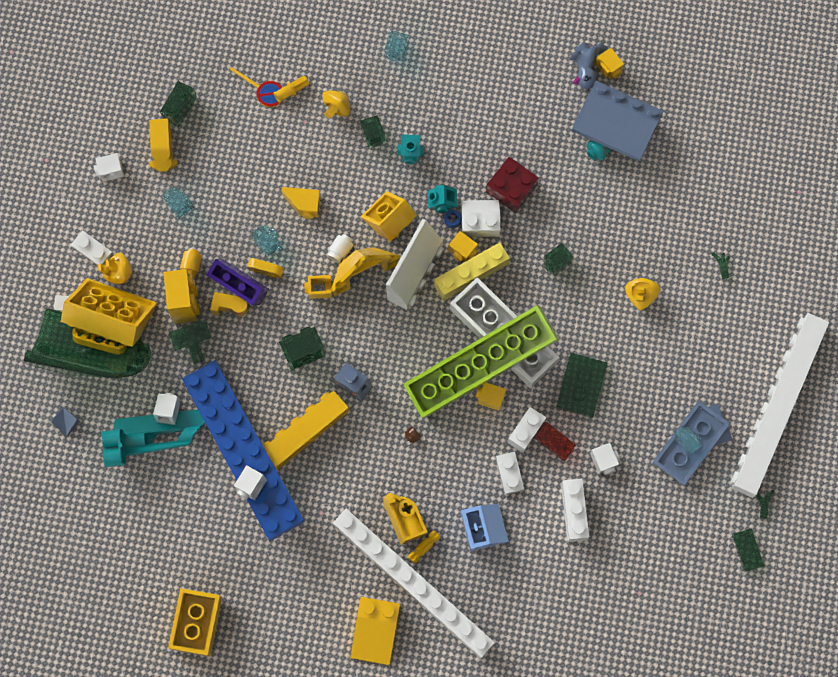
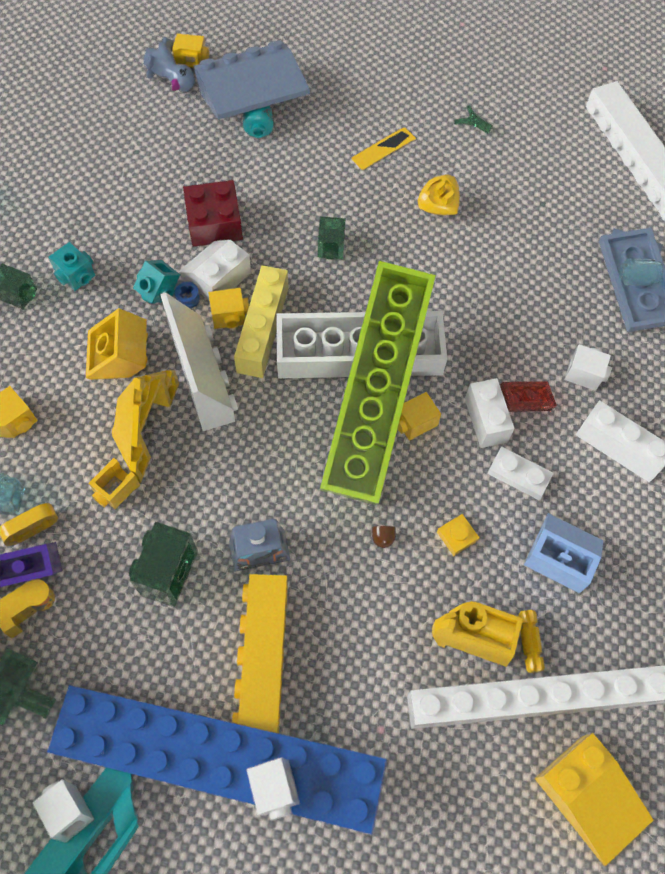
camera: 50 degrees left, 10 degrees down
(340, 248) = (96, 425): white brick -> none
(447, 469) = (458, 534): none -> yellow plate
(581, 385) = (484, 327): clear green tile -> none
(652, 230) = (383, 148): none -> yellow sticker

